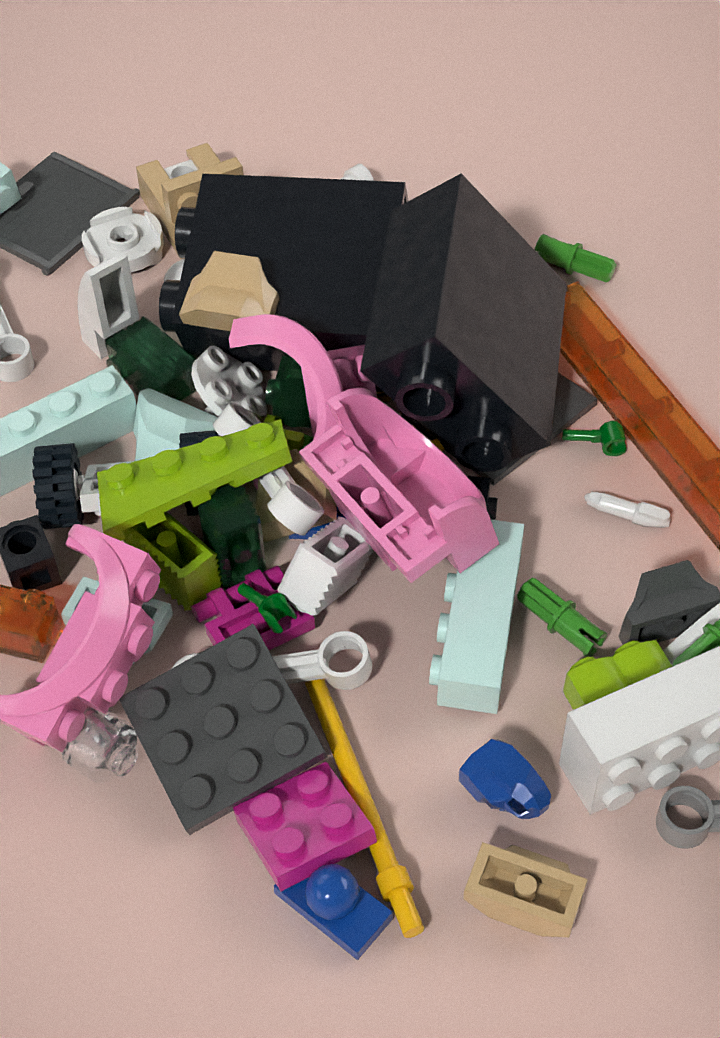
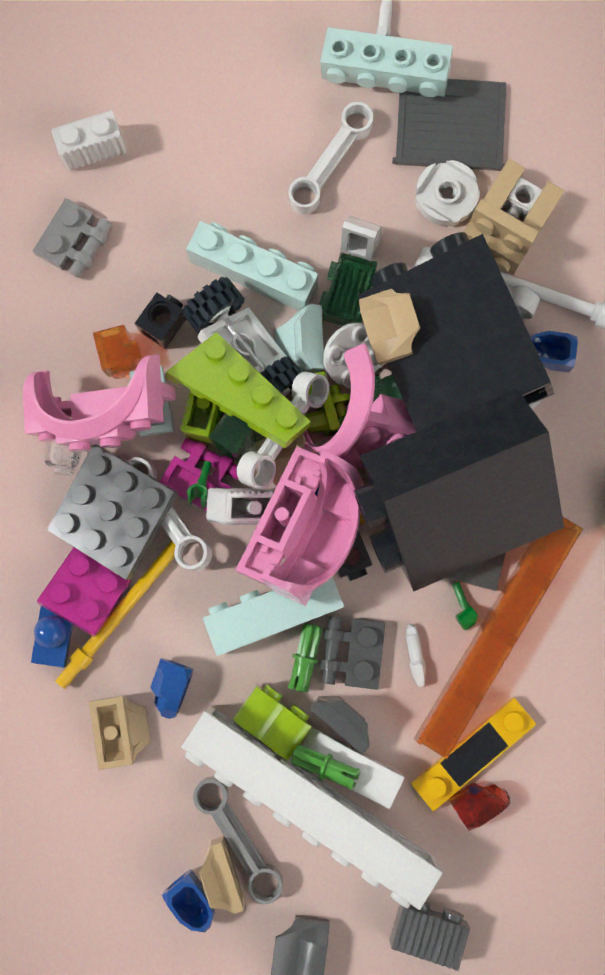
camera: 60 degrees right, 30 degrees up
(591, 557) = (364, 653): none -> dark grey plate

